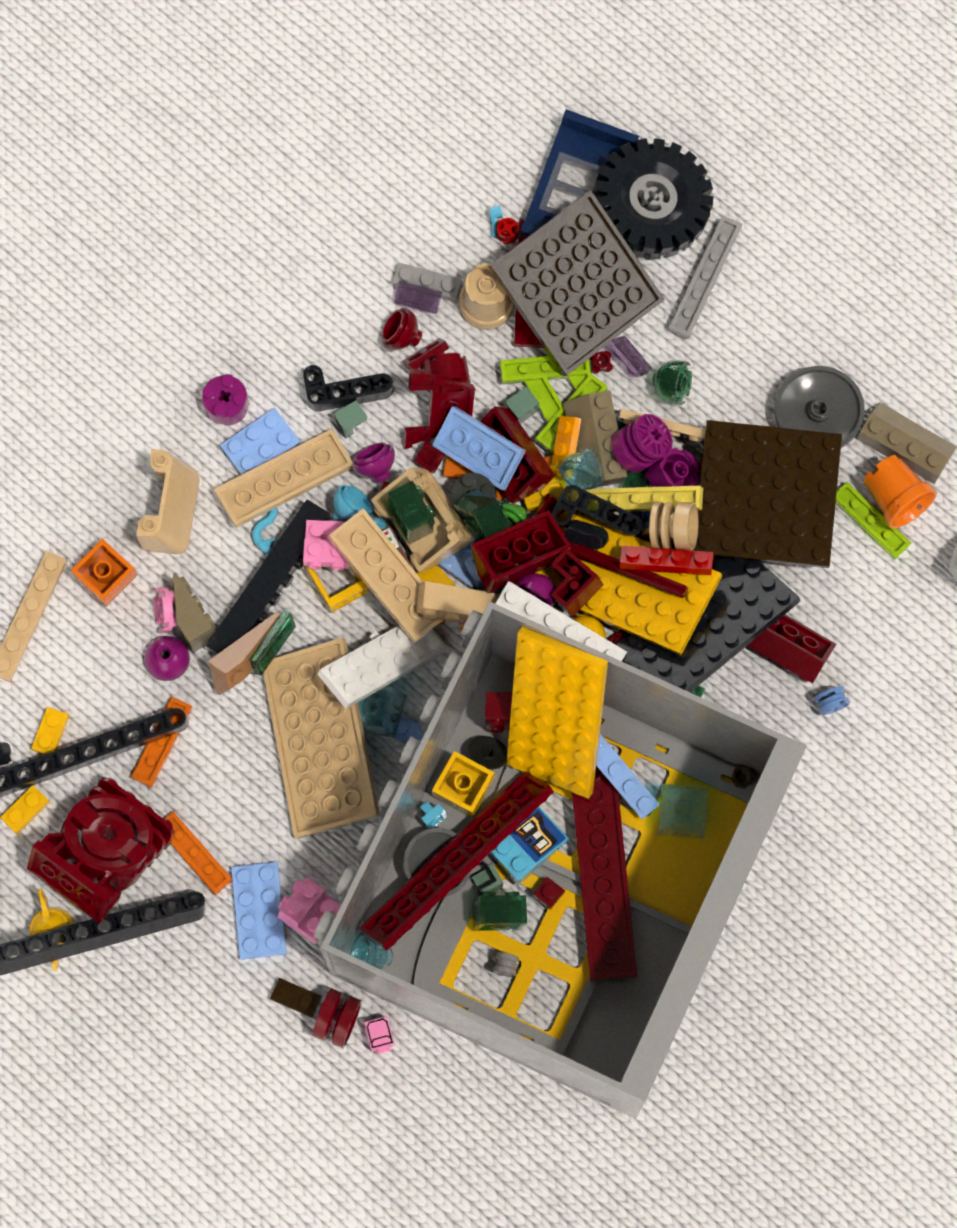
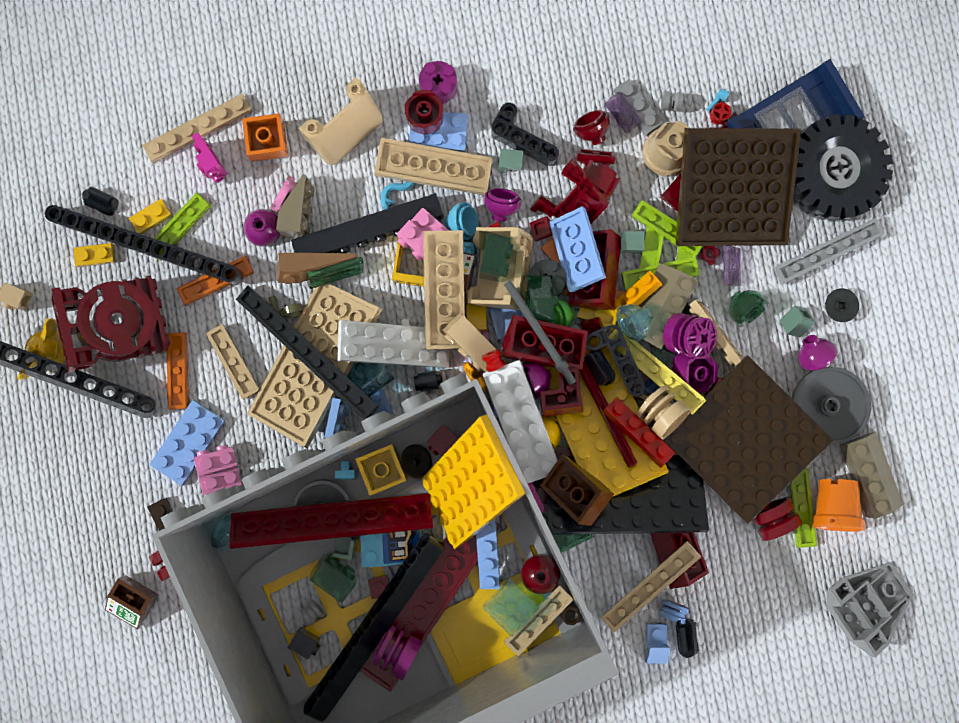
camera: 40 degrees right, 10 degrees up
(72, 634) = (207, 160): none -> dark pink plate
(85, 711) = (183, 221): none -> lime tile
(241, 801) = (233, 361): none -> tan plate
(243, 424) = (424, 101): none -> dark red brick
(258, 711) = (291, 311): none -> olive plate
(306, 730) = (308, 353): none -> black plate
(327, 1097) = (130, 601): none -> reddish brown slope
(382, 763) = (336, 418): none -> light blue plate
(433, 676) = (427, 381): none -> black brick
(454, 253) = (672, 101): none -> light grey wheel
(483, 598) = (493, 360): none -> red wheel
(523, 996) = (305, 643): none -> black brick
(550, 555) = (561, 365): none -> dark grey bar
(573, 930) = (373, 627): none -> black beam
(613, 926) = (397, 652): none -> magenta wheel
(656, 651) = (576, 491): none -> reddish brown slope
(682, 773) = (538, 564): none -> dark red piece
(718, 804) = (547, 612): none -> tan plate
(729, 360) = (797, 321): none -> sand green panel
(759, 306) = (849, 301): none -> pearl dark grey piece
(767, 373) = (816, 353): none -> magenta piece
(793, 680) = (651, 586): none -> tan plate
(843, 744) = (656, 643): none -> light blue slope
(855, 546) = (777, 519): none -> dark red wheel
(865, 717) = (687, 638): none -> black piece

